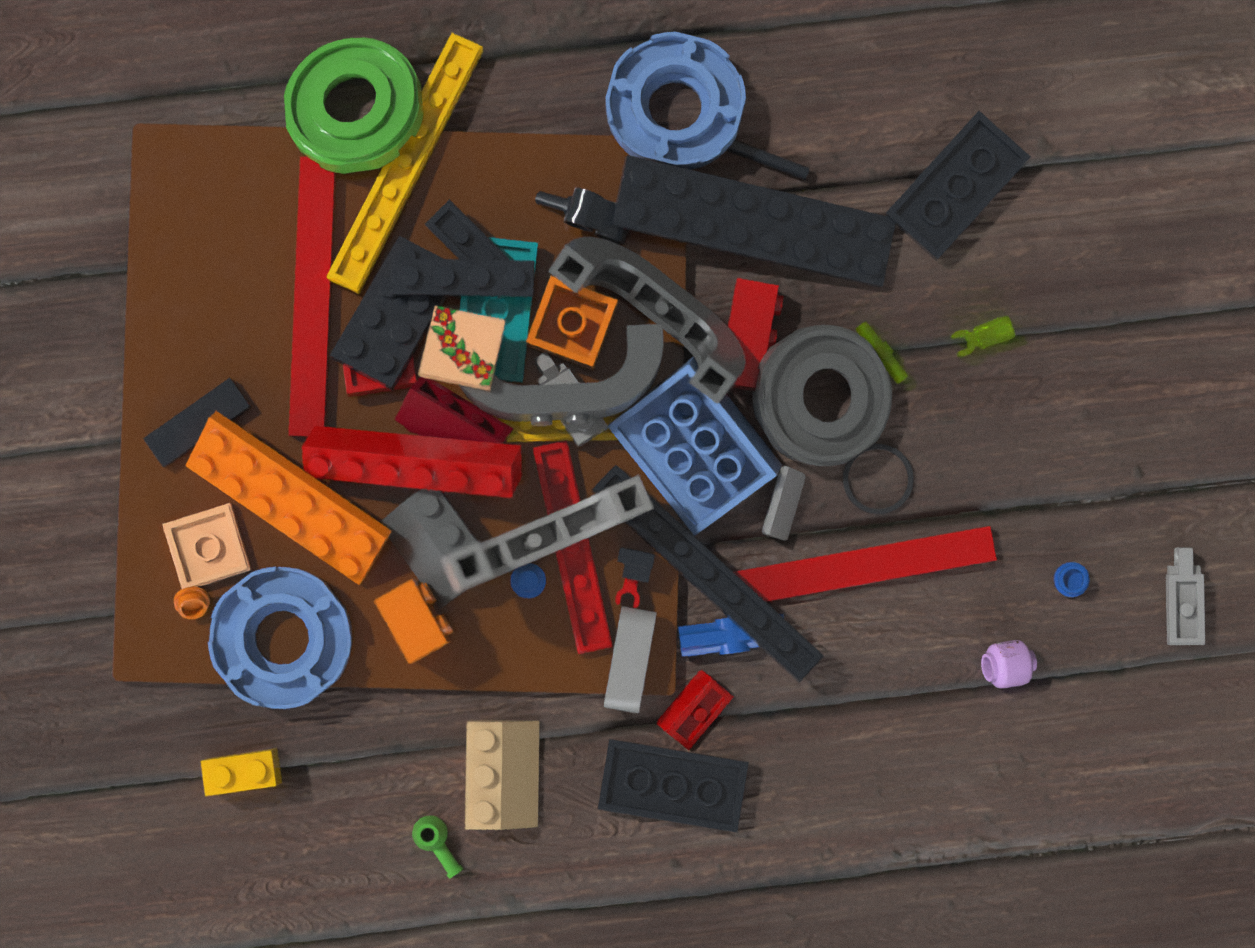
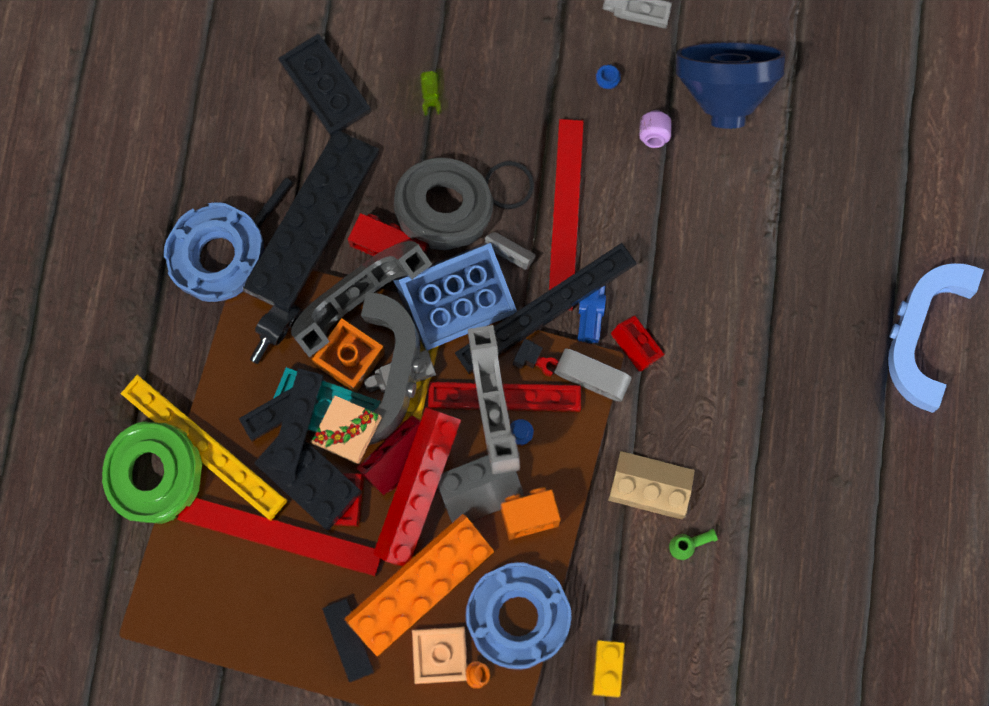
camera: 75 degrees left, 10 degrees down
(673, 785) = (686, 369): black plate -> none
(883, 351) = (441, 153): clear neon green bar -> none
(1108, 752) = (729, 78): none -> dark blue cone

